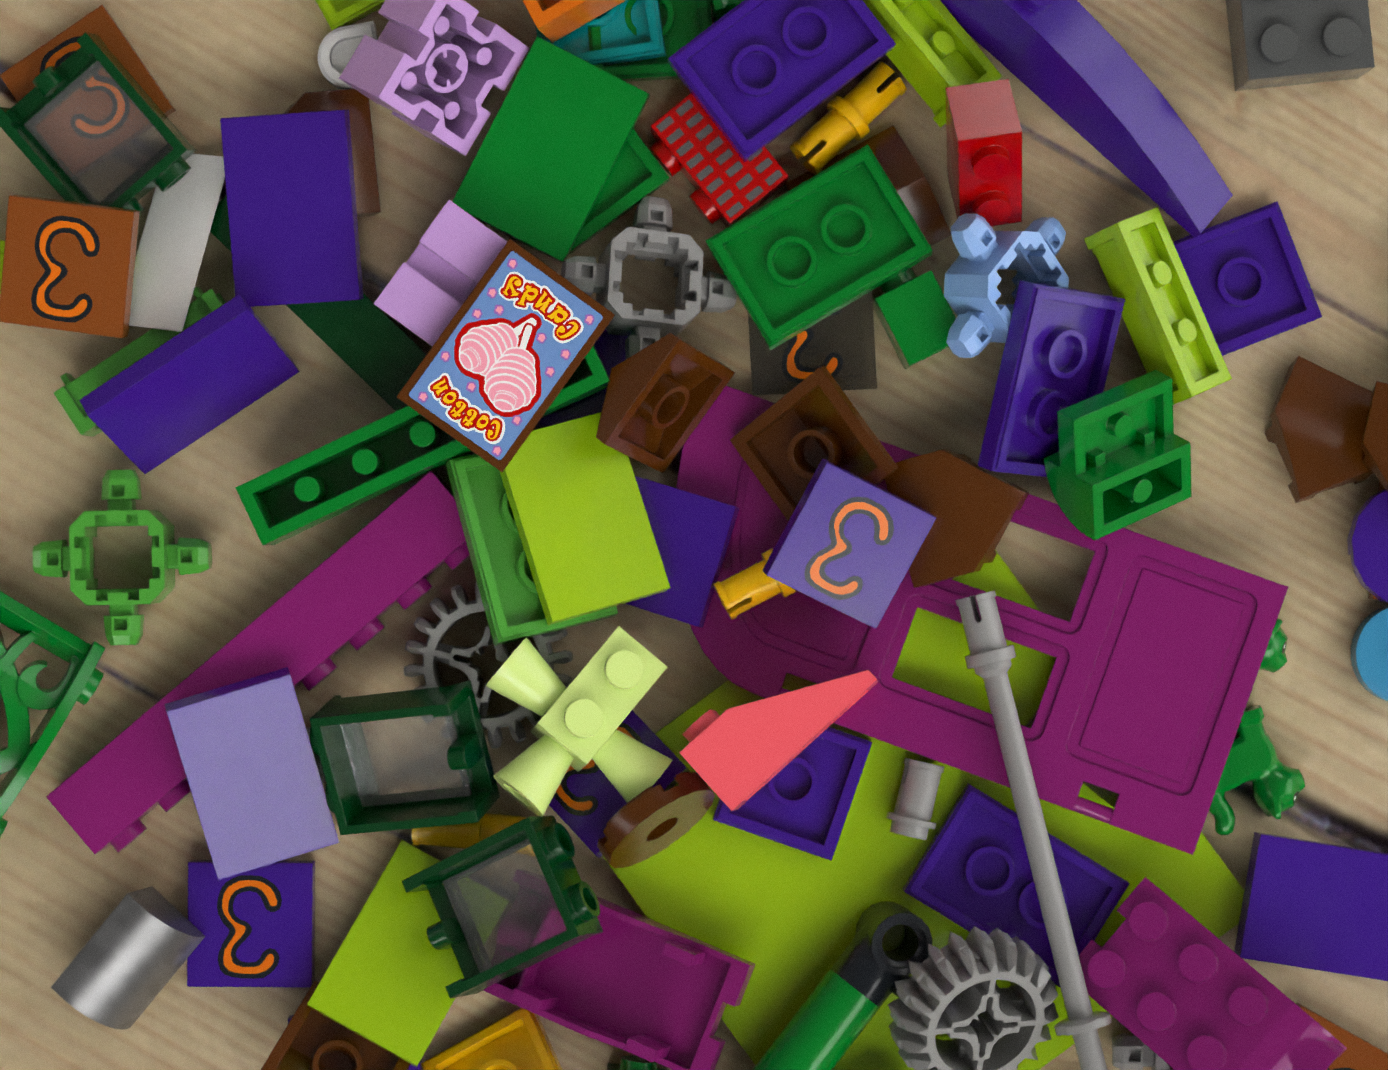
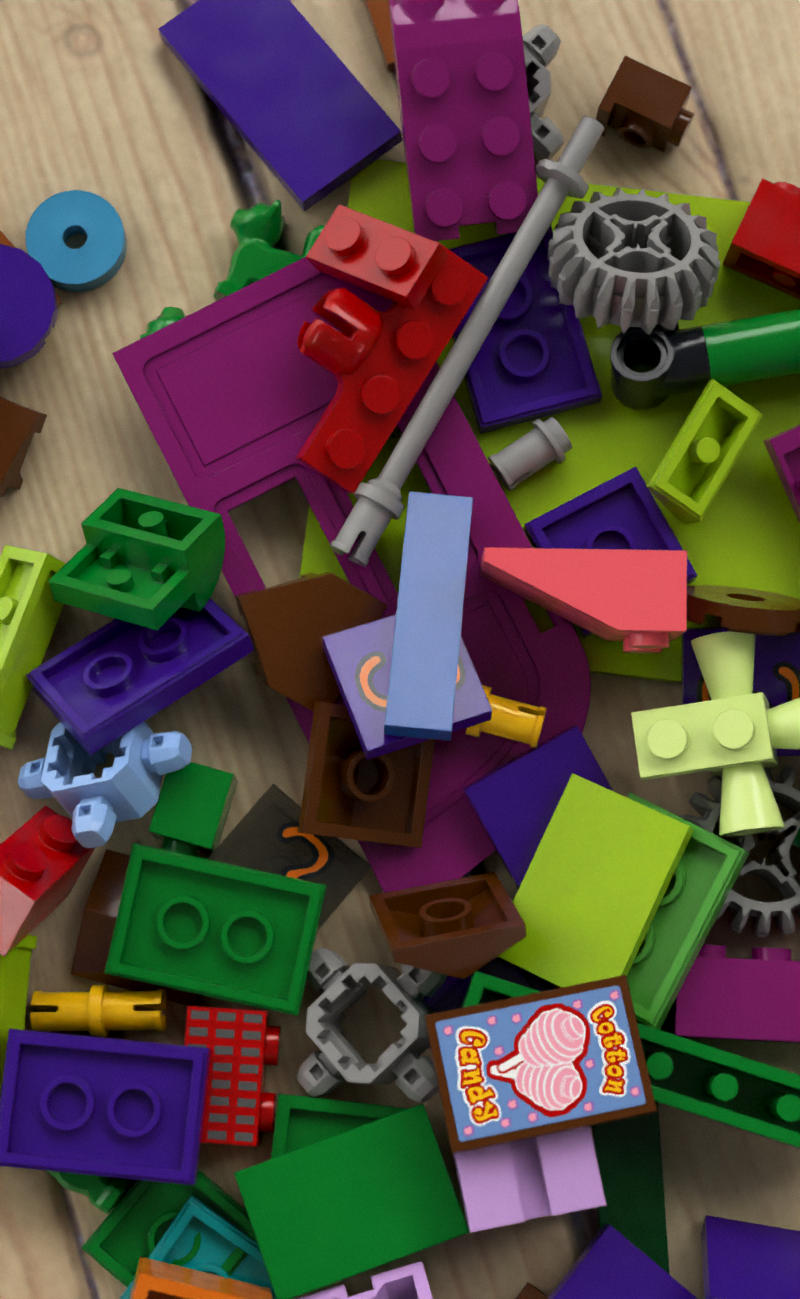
camera: 145 degrees left, 10 degrees down
(790, 914) = (703, 452): none -> lime slope
(875, 603) = (429, 616): none -> tile
(1085, 761) = (377, 365): none -> red plate
(1160, 833) = (377, 256): none -> plate

